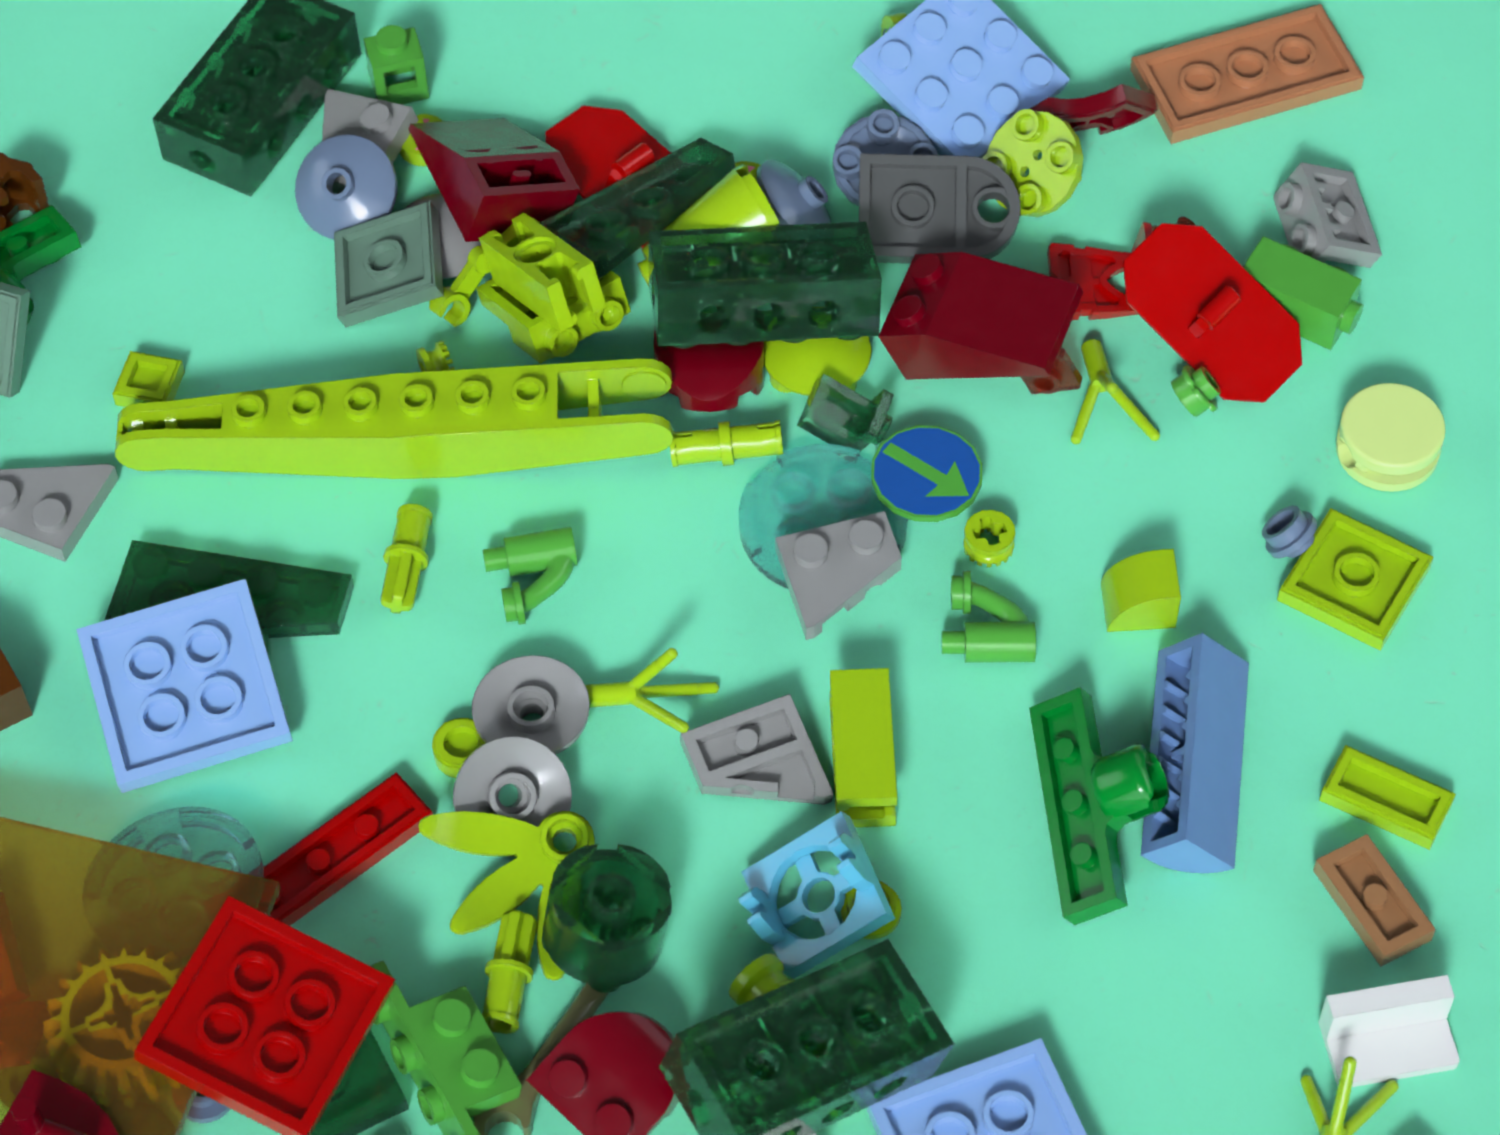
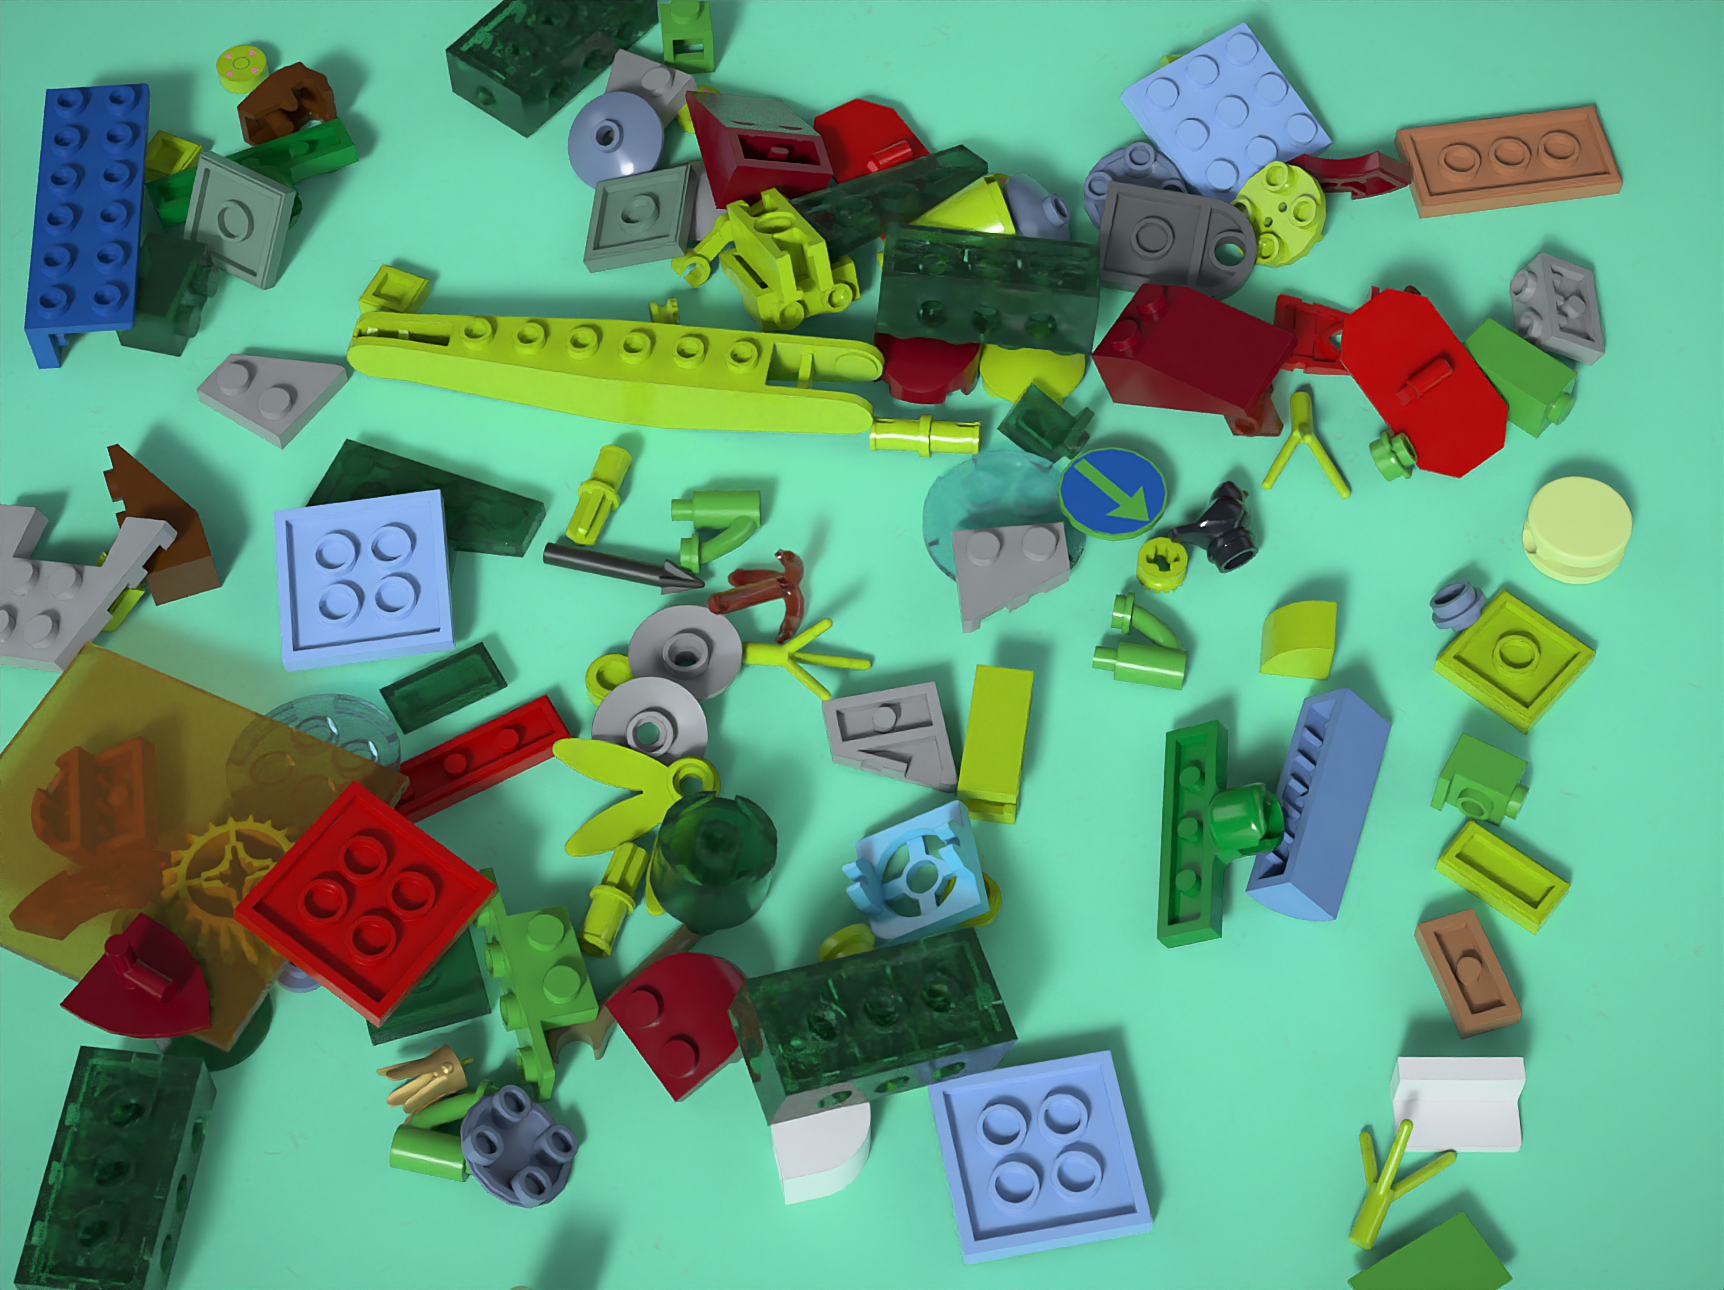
camera: 10 degrees right, 0 degrees up
(288, 783) = (443, 688): none -> clear green tile
(496, 631) = (667, 576): none -> pearl dark grey piece
(596, 625) = (764, 586): none -> clear red piece
(1043, 492) = (1222, 529): none -> black animal
(1350, 706) = (1482, 781): none -> bright green brick

